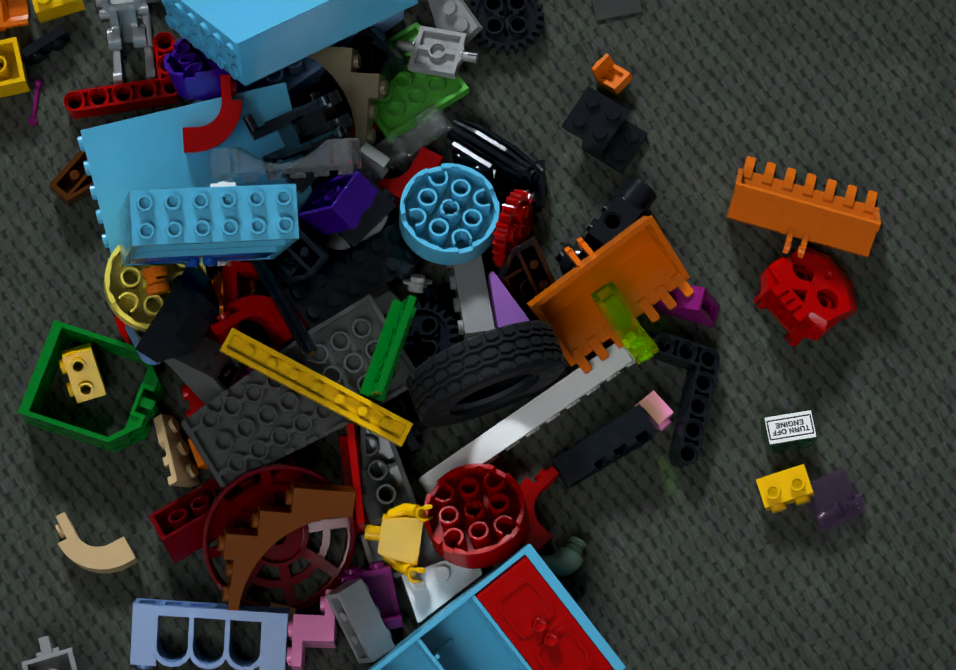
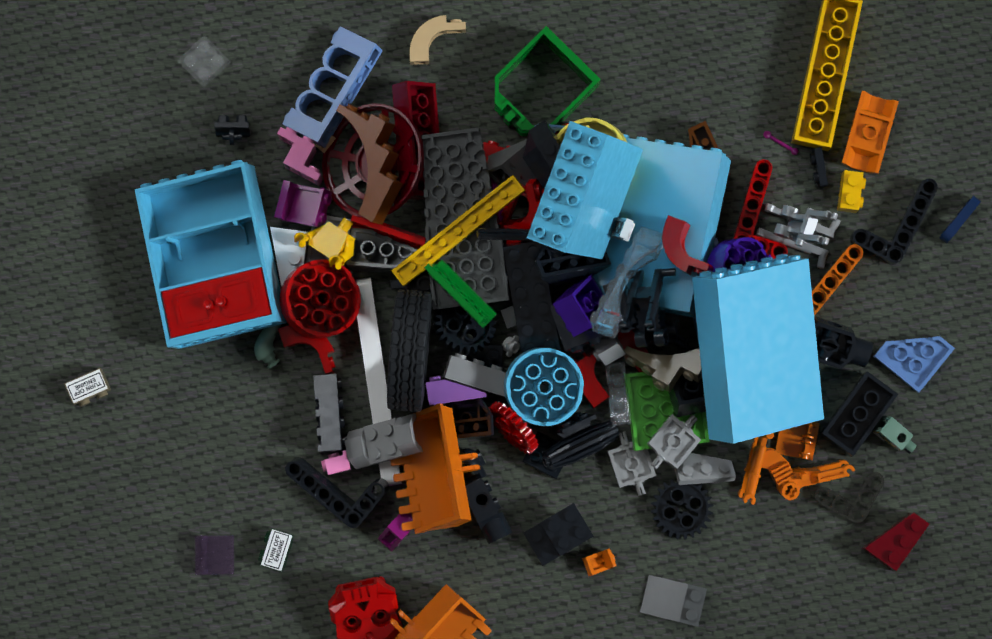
camera: 115 degrees right, 10 degrees up
(83, 372) = (557, 84): yellow brick -> none
(182, 470) = (462, 119): tan wing -> none
(360, 620) = (288, 187): light grey brick -> none
(488, 92) = (631, 466): none -> light grey plate
(604, 365) = (382, 442): none -> light grey piece
(623, 323) = (400, 468): clear neon green arch -> none
(785, 488) = (237, 524): yellow brick -> none

